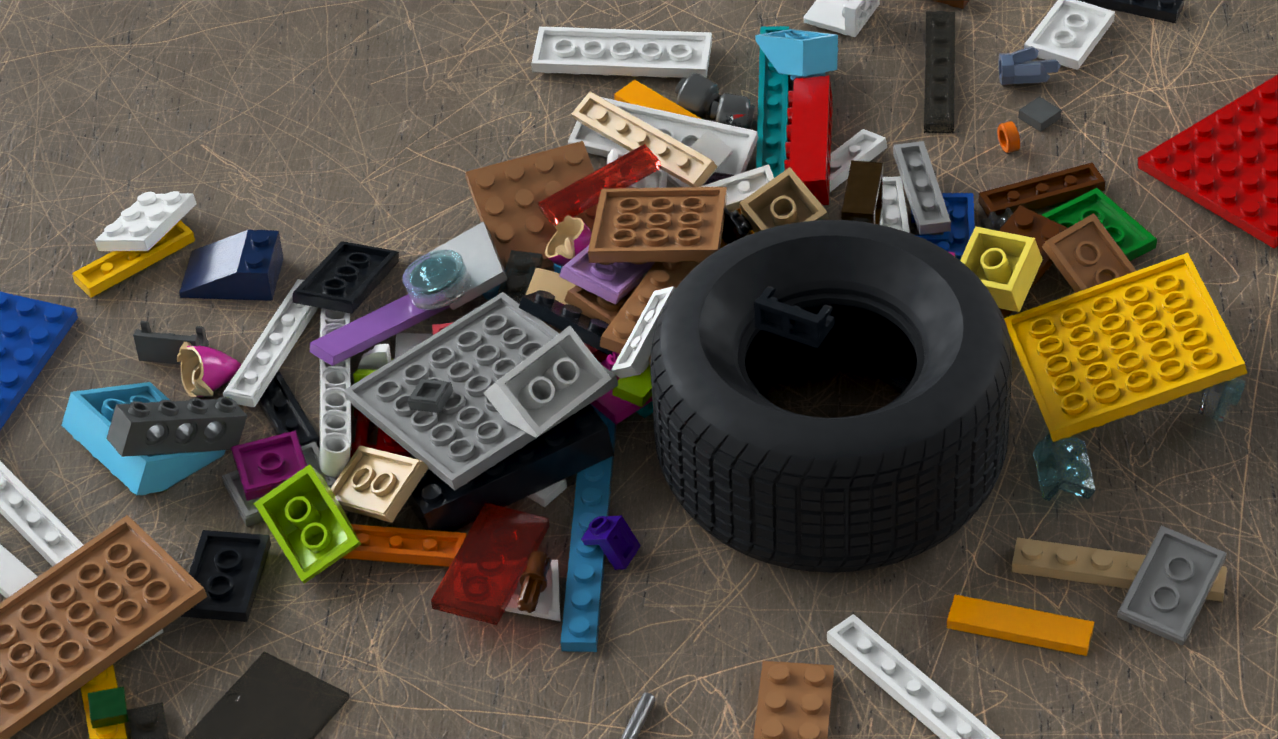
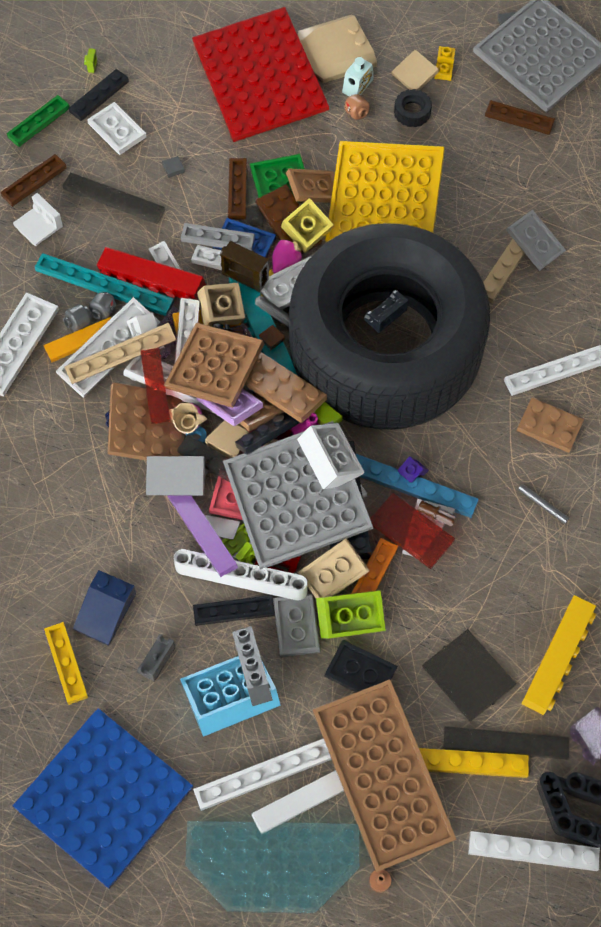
camera: 75 degrees left, 20 degrees up
(108, 707) = (447, 754): dark green tile -> none
(145, 221) = (42, 647): white plate -> none
(205, 369) = (194, 643): hat -> none
(268, 463) = (287, 625): magenta tile -> none
(269, 351) = (184, 598): white tile -> none
(346, 277) = (150, 544): black tile -> none
(376, 358) = (231, 543): white tile -> none
(430, 395) = (297, 520): dark grey tile -> none
(436, 279) = (188, 493): clear light blue piece -> none
(637, 350) = (318, 393): white plate -> none
(800, 52) = (73, 254): medium azure slope -> none
(1008, 137) = (189, 186): orange tile -> none
(1020, 69) = (137, 158): sand blue rock -> none
(1020, 625) = (530, 311): light orange tile -> none

